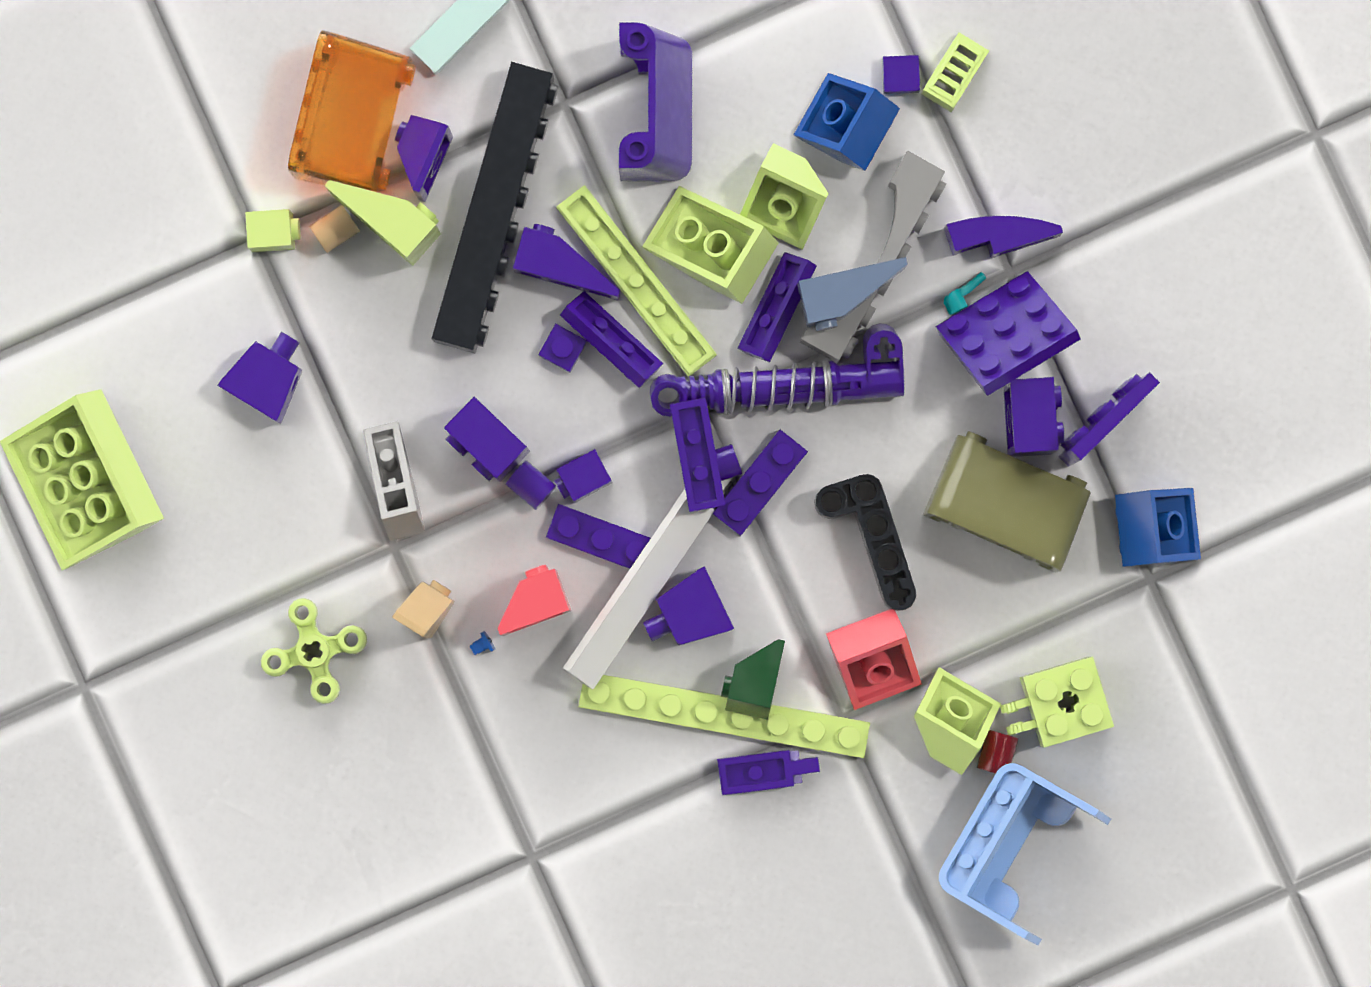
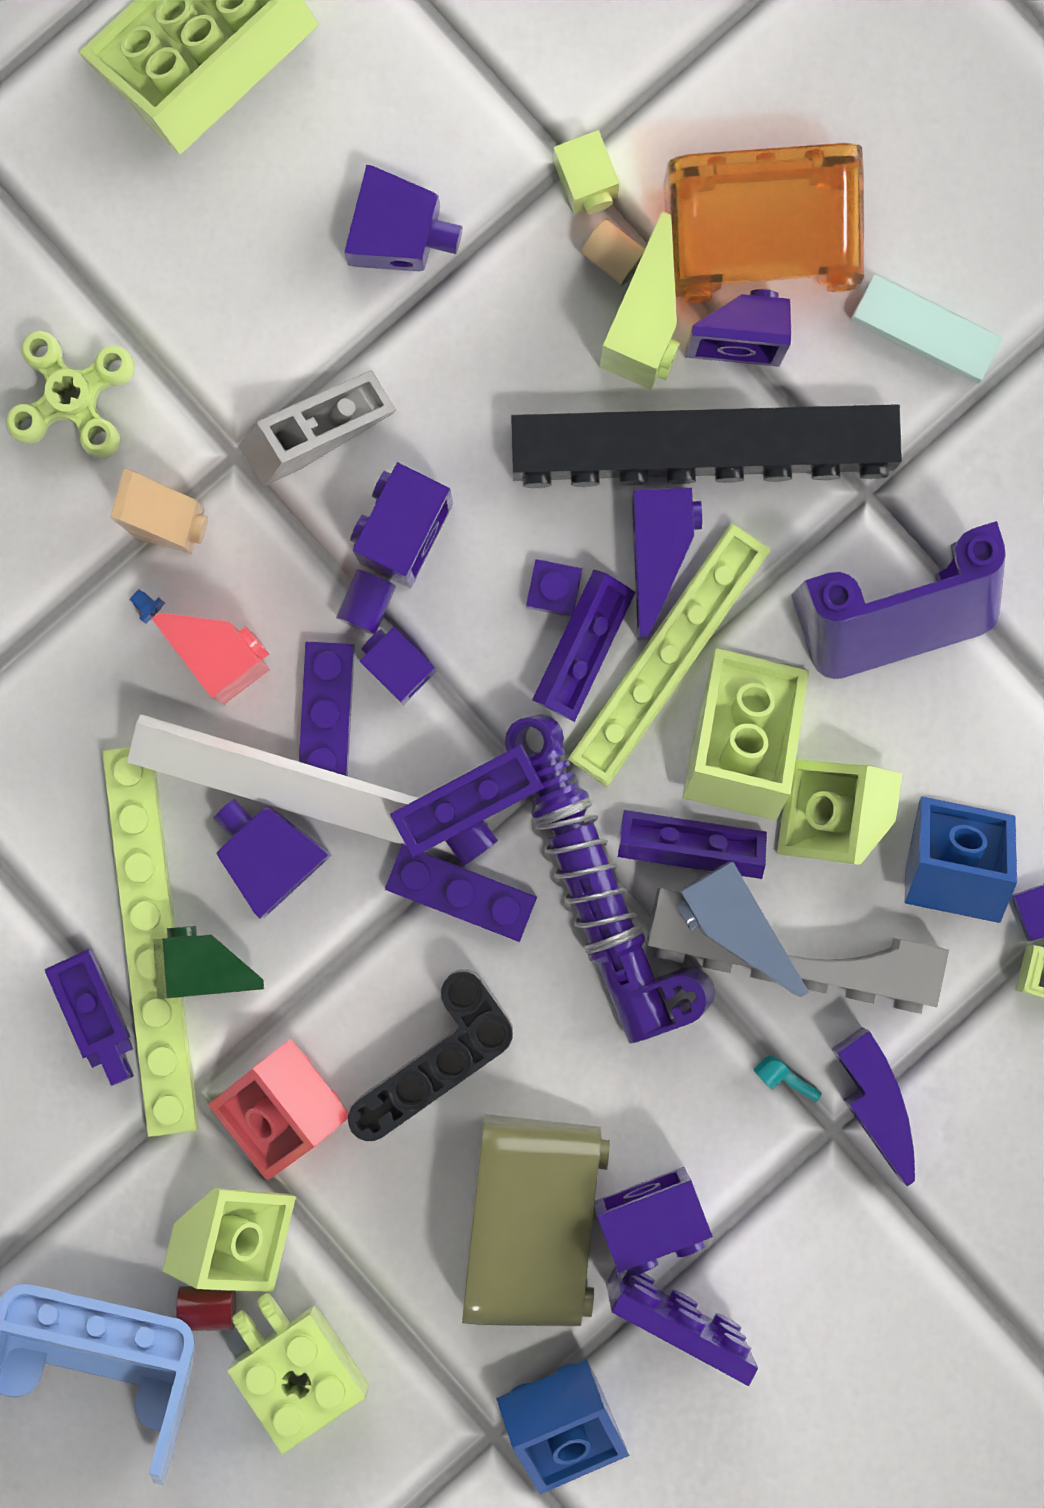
camera: 75 degrees right, 0 degrees up
(1008, 333) = (752, 1156): dark purple plate -> none

